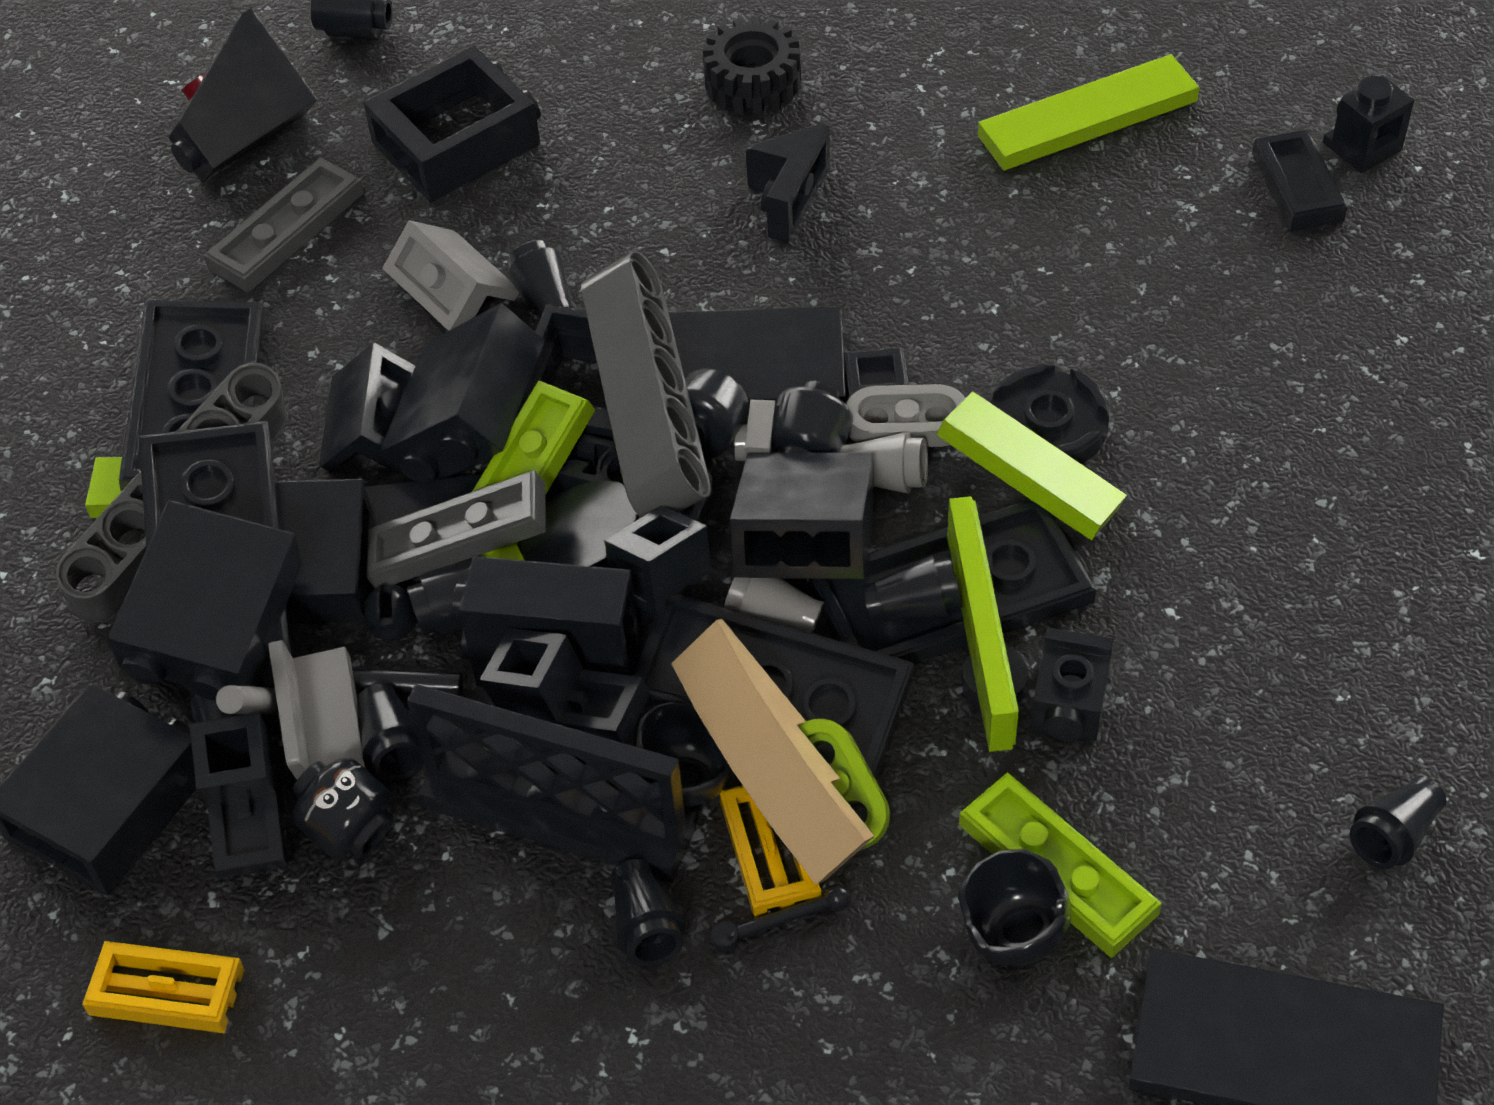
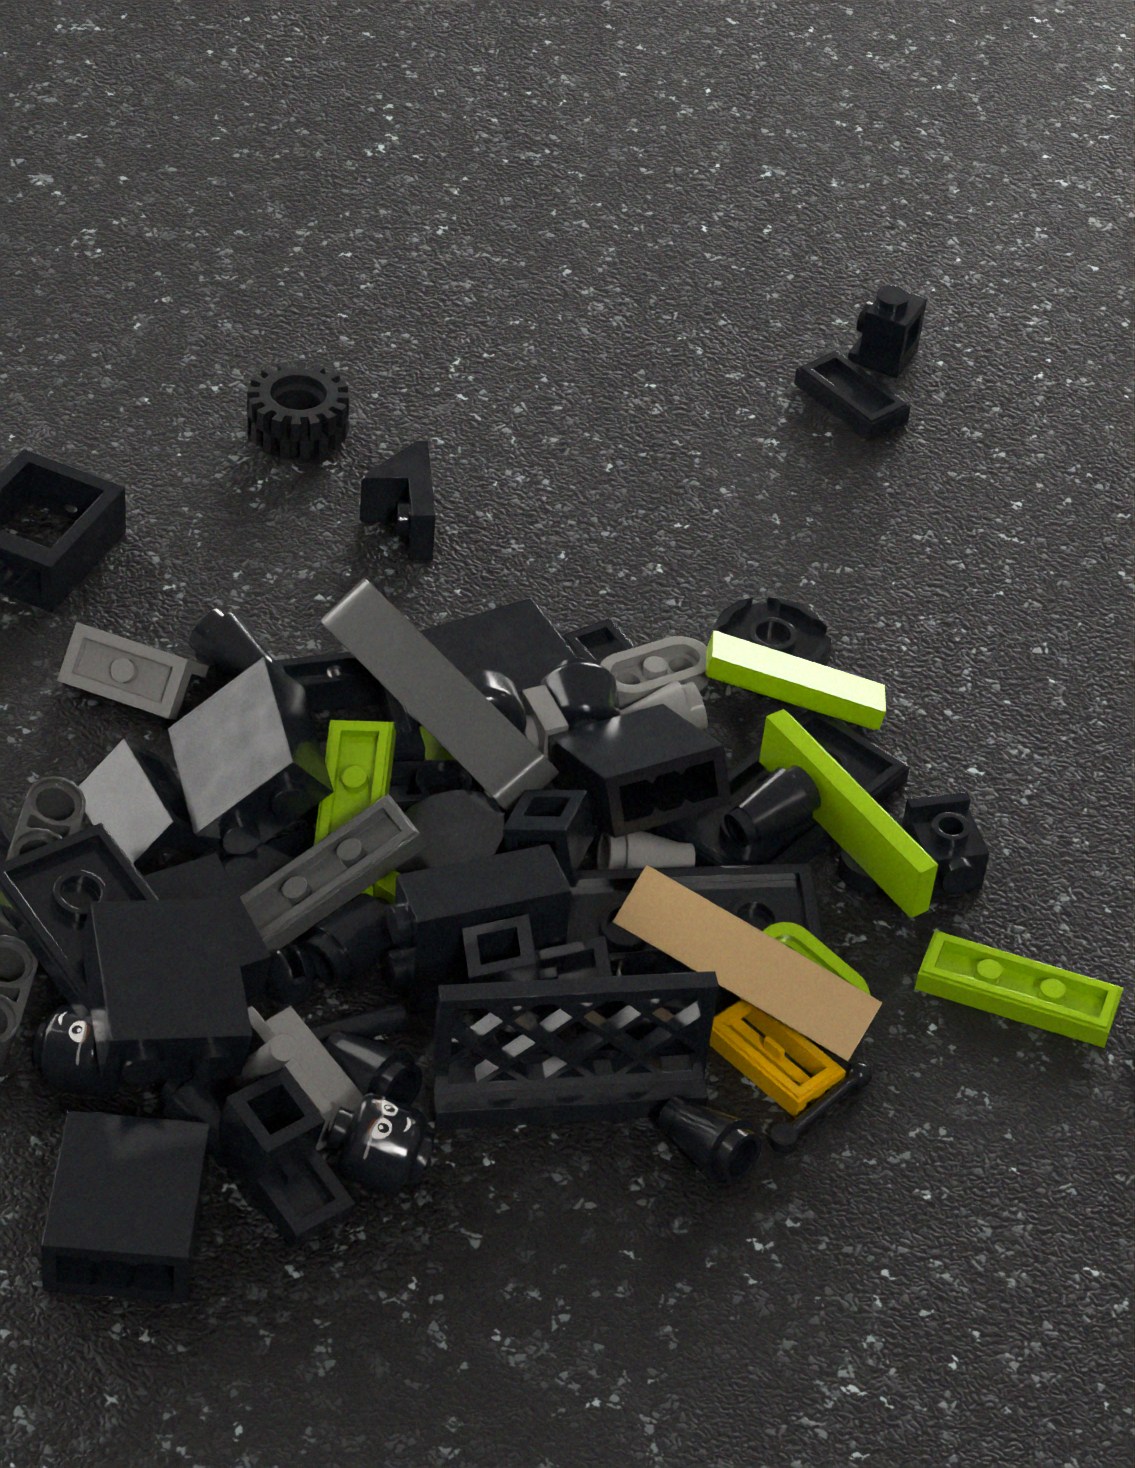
camera: 35 degrees left, 10 degrees down
(156, 1011) = (312, 1362): yellow tile -> none
(1015, 907) = (1020, 1024): black hair -> none
(1087, 112) = (632, 381): lime tile -> none

